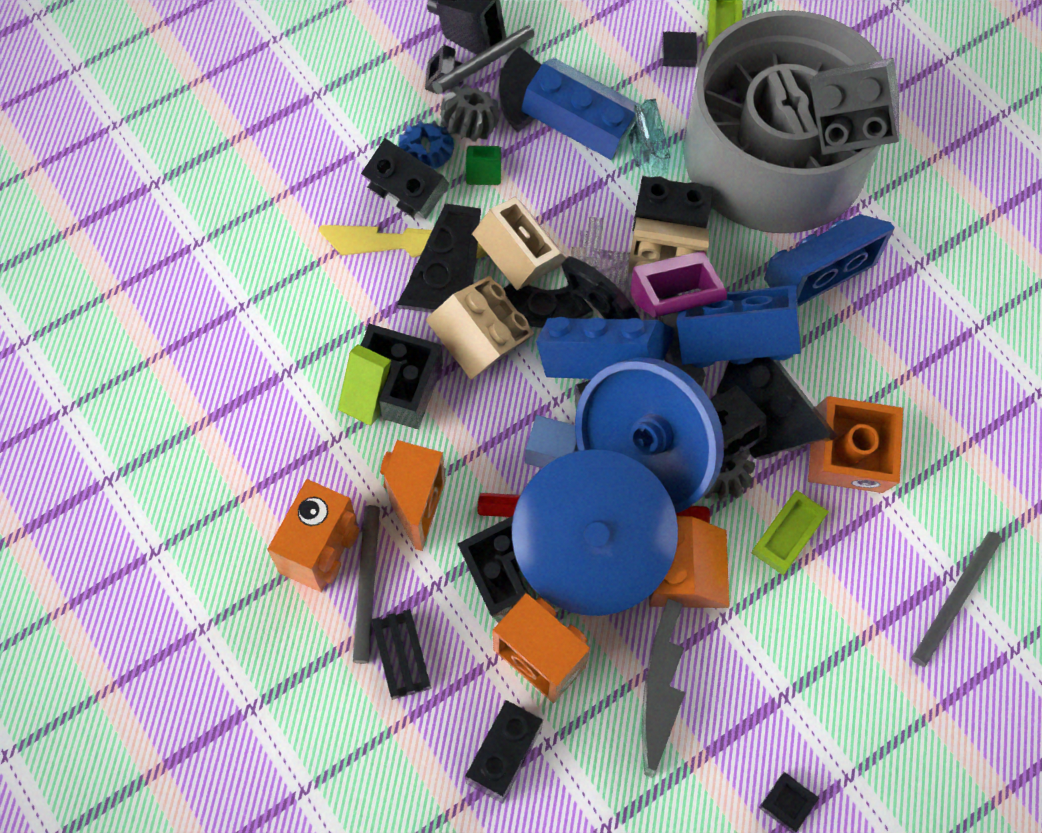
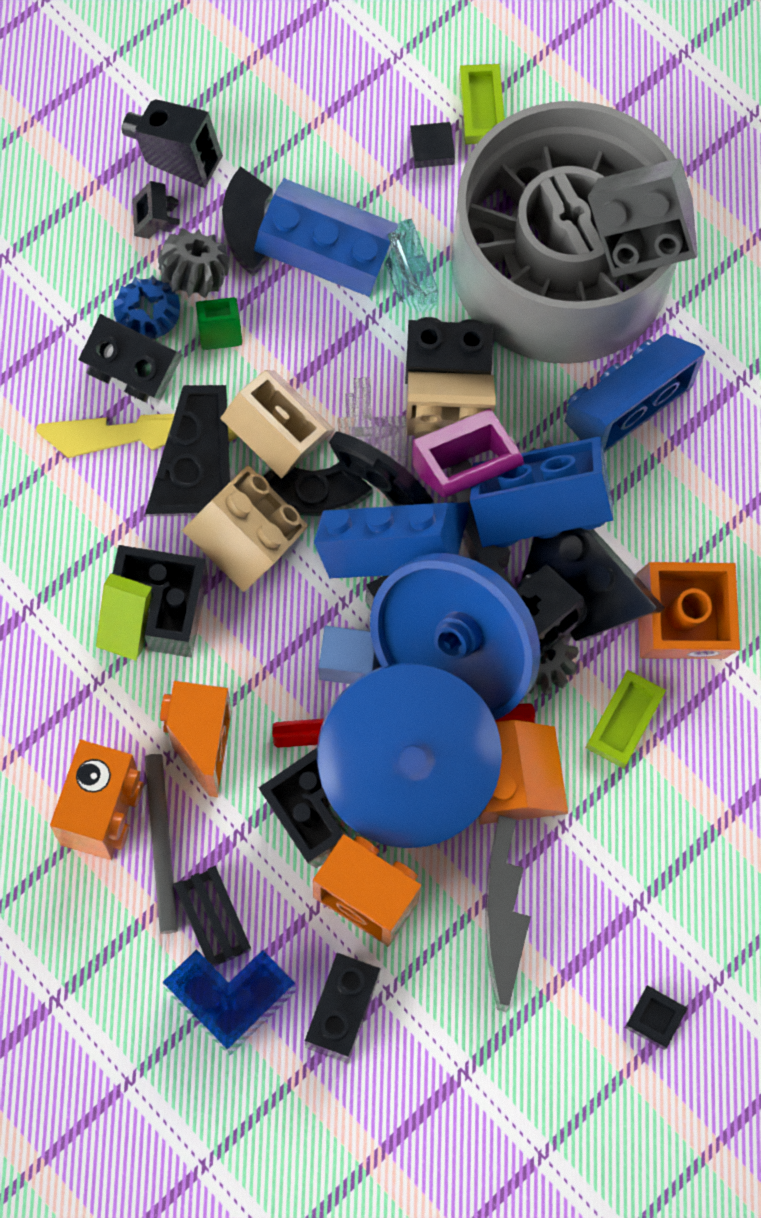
camera: 10 degrees left, 5 degrees up
(405, 737) = (233, 1008): none -> clear blue brick
(483, 59) = (200, 192): dark grey bar -> none

